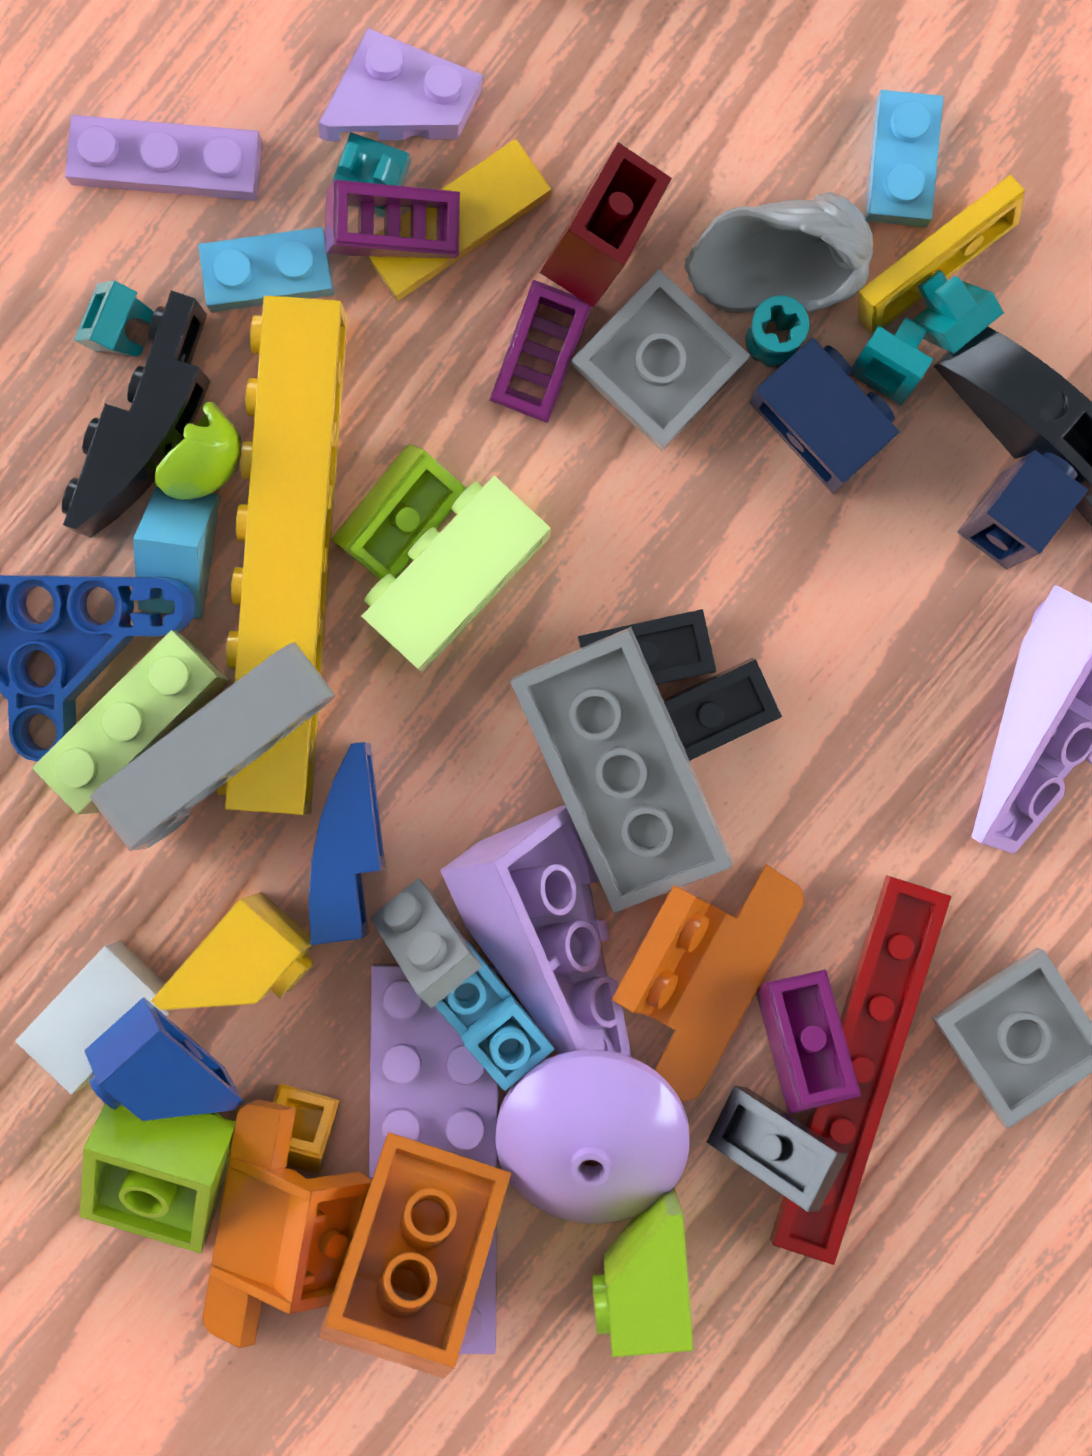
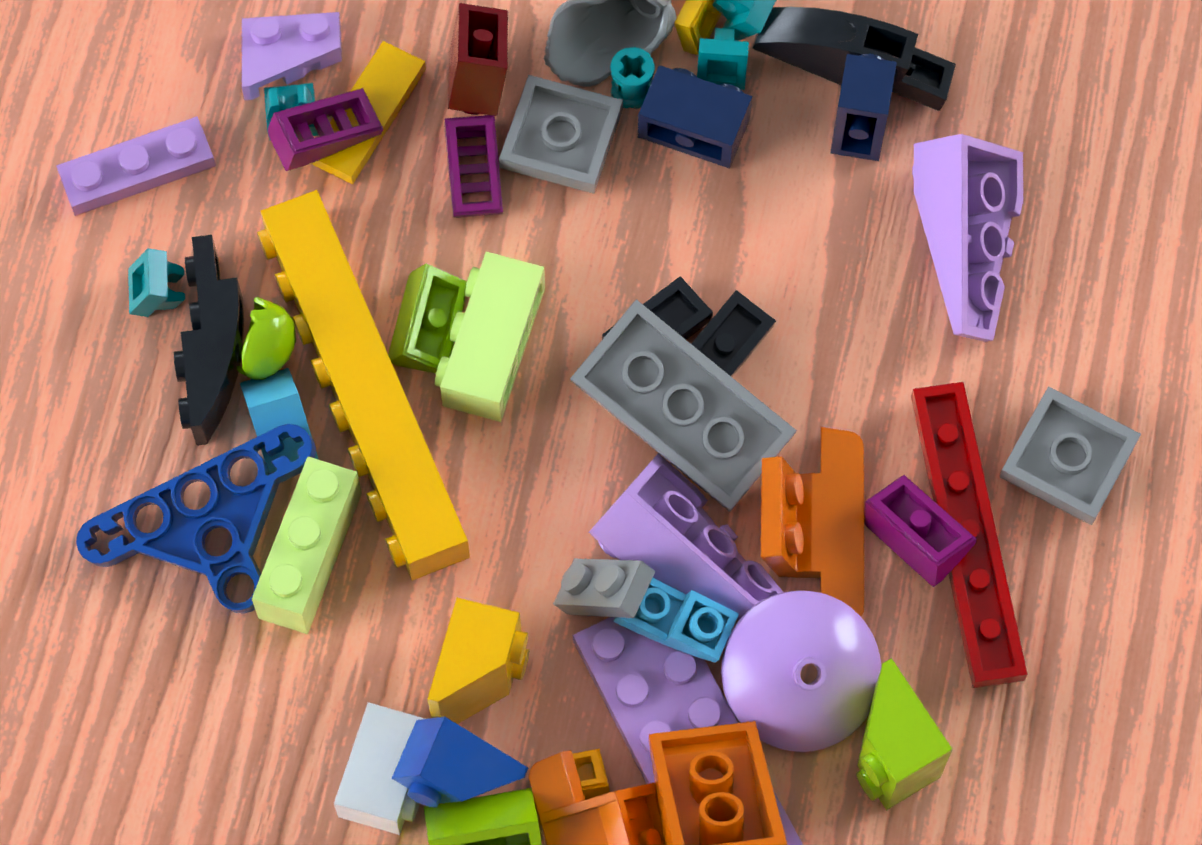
camera: 30 degrees left, 20 degrees down
(211, 747) = (351, 568): light grey beam -> none
(275, 264) = (236, 209): medium azure plate -> none
(344, 848) = (513, 559): blue slope -> none
(777, 1148) = (938, 608): plate -> none

